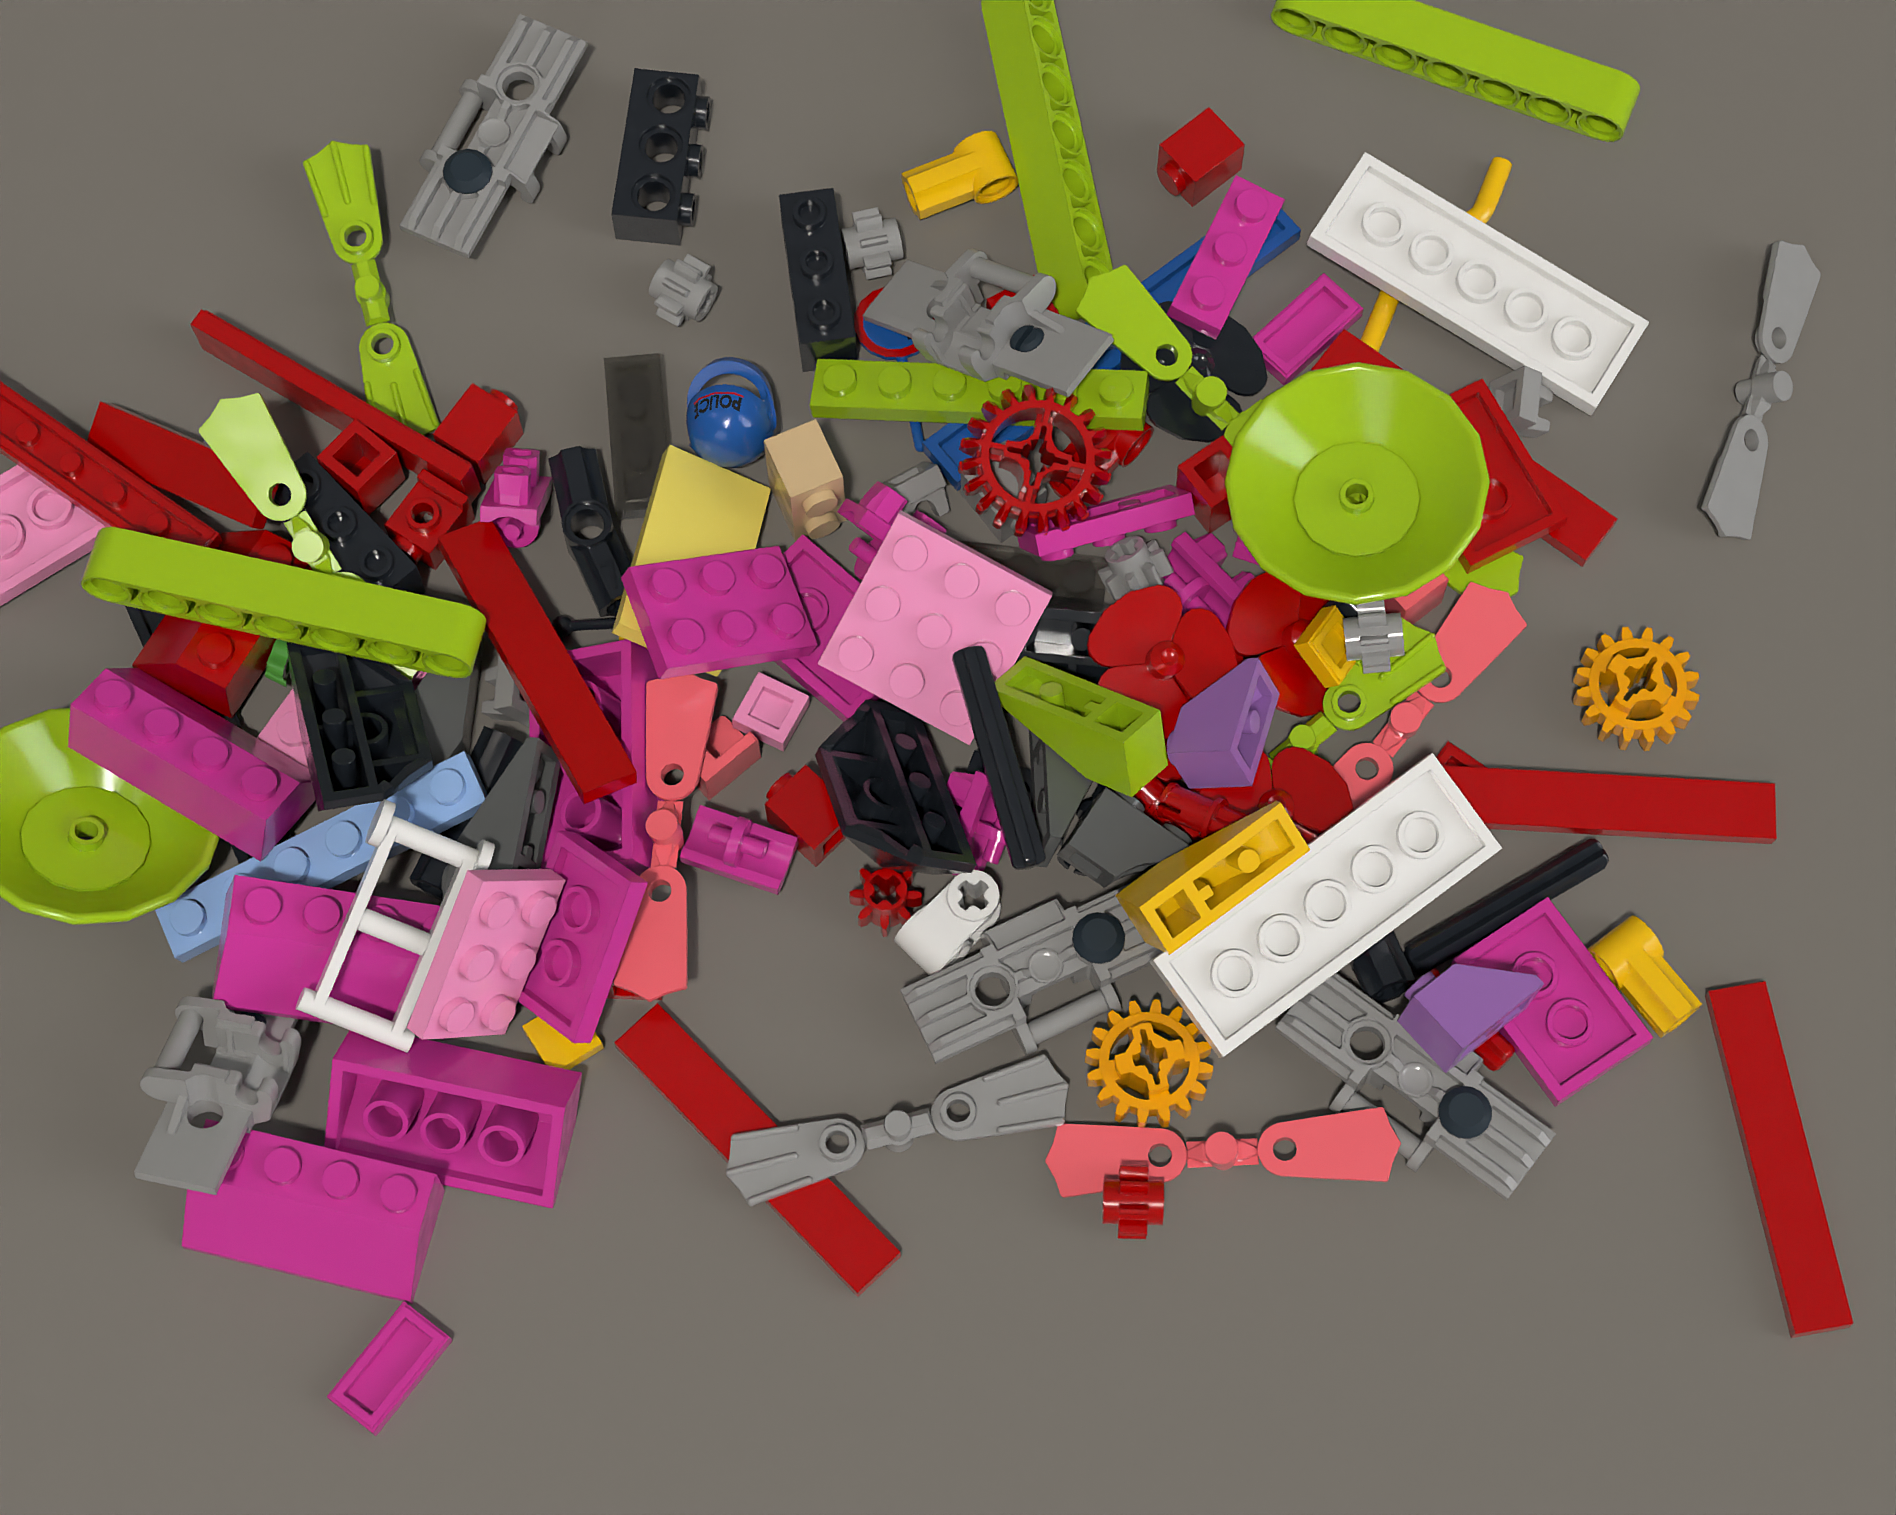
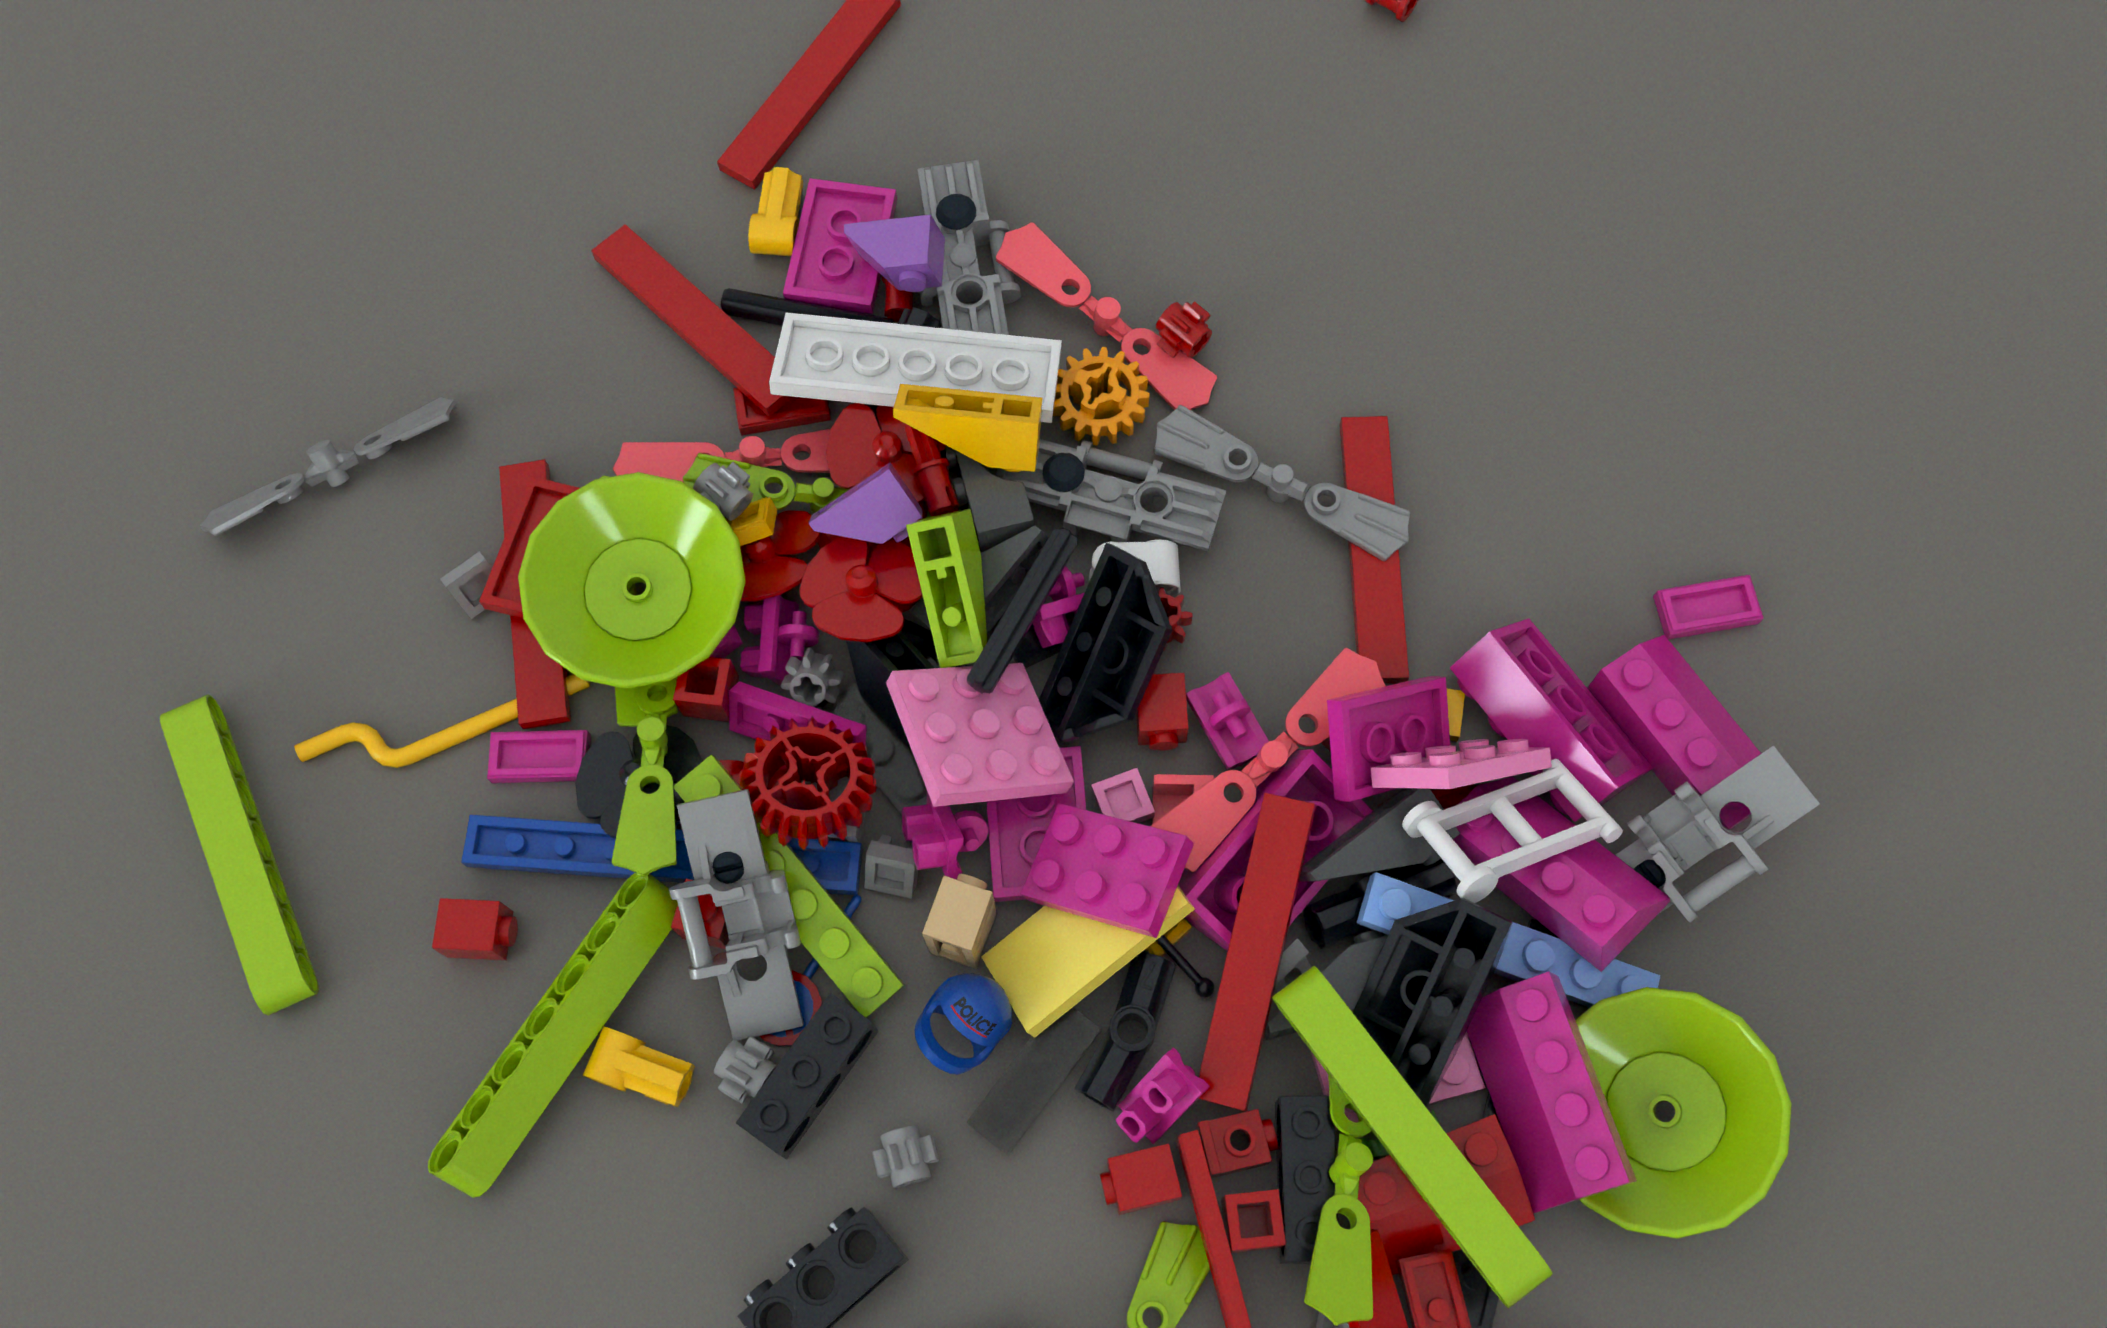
camera: 135 degrees left, 0 degrees up
(1225, 257) = (537, 829): dark pink plate -> none
(1477, 282) = (408, 680): white plate -> none
(1620, 674) = (599, 359): light orange gear -> none

